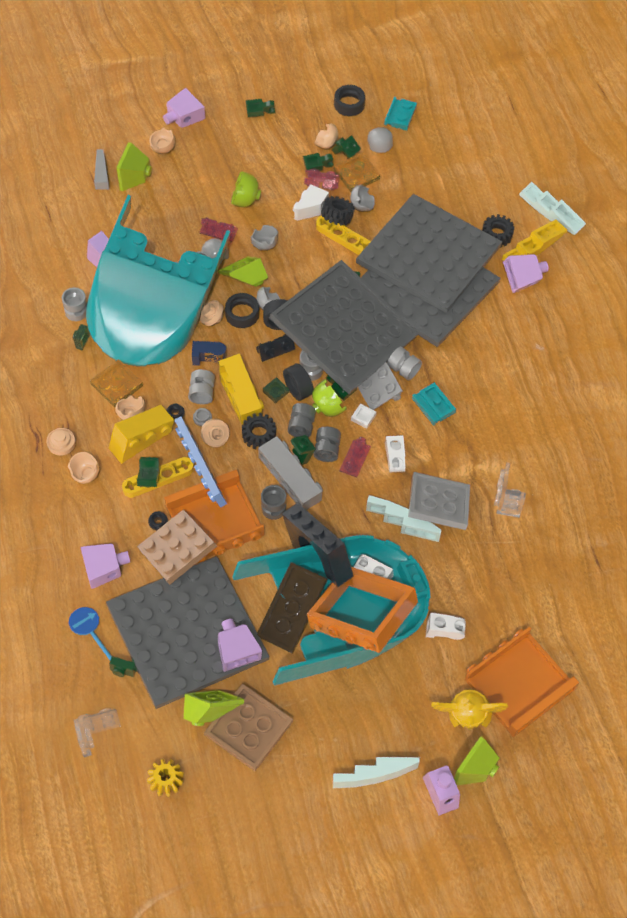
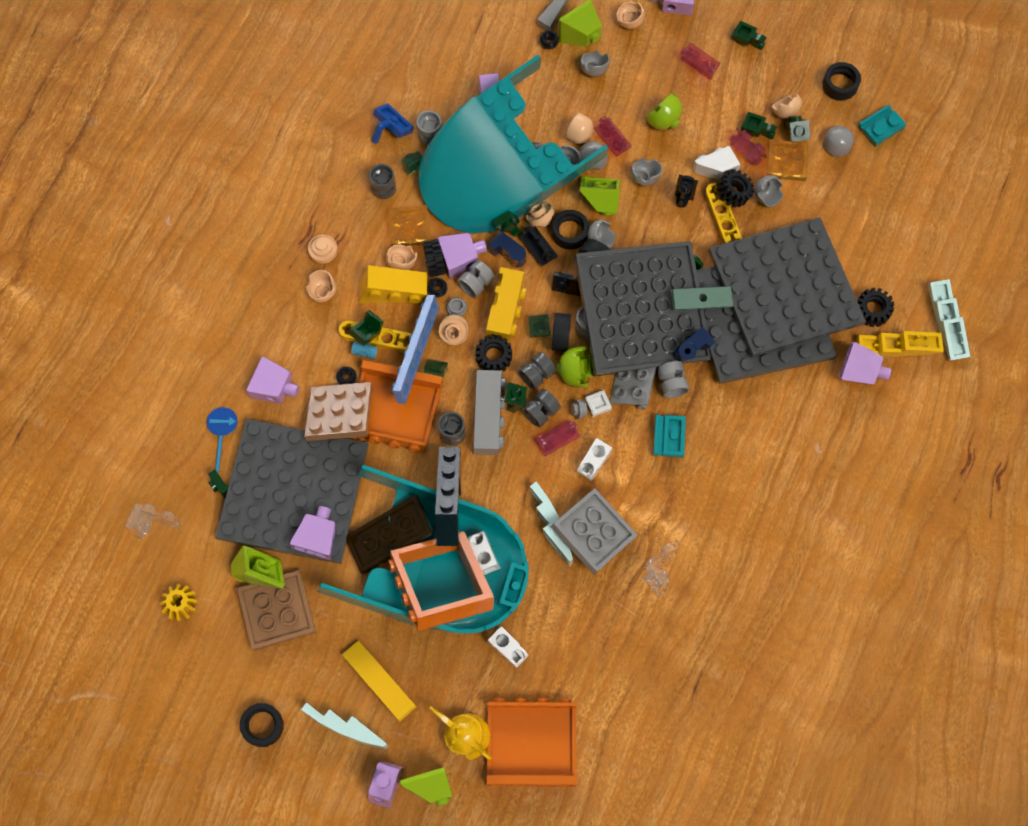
camera: 40 degrees right, 10 degrees up
(38, 316) = (392, 120): none -> blue plate
(69, 363) = (382, 181): none -> dark grey wheel
(114, 192) = (549, 35): none -> black plate
(156, 493) = (359, 349): none -> medium azure piece
(157, 390) = (434, 258): none -> black tyre
(164, 188) = (594, 63): none -> light grey hair
(172, 377) = (460, 252): none -> lavender torso
(192, 237) = (580, 129): none -> light nougat hair
(194, 331) = (508, 222): none -> dark green plate
(223, 468) = (436, 368): none -> clear green plate
(227, 336) = (538, 245): none -> black hinge
(238, 143) = (699, 60): none -> clear pink hinge
(304, 232) = (685, 190): none -> black hinge
(309, 803) = (249, 713): none -> black tyre
(354, 427) = (579, 409): none -> light grey plate
(372, 719) = (379, 681): none -> yellow slope
(381, 293) = (712, 298): none -> sand green tile
(401, 324) = (688, 348): none -> dark blue leg

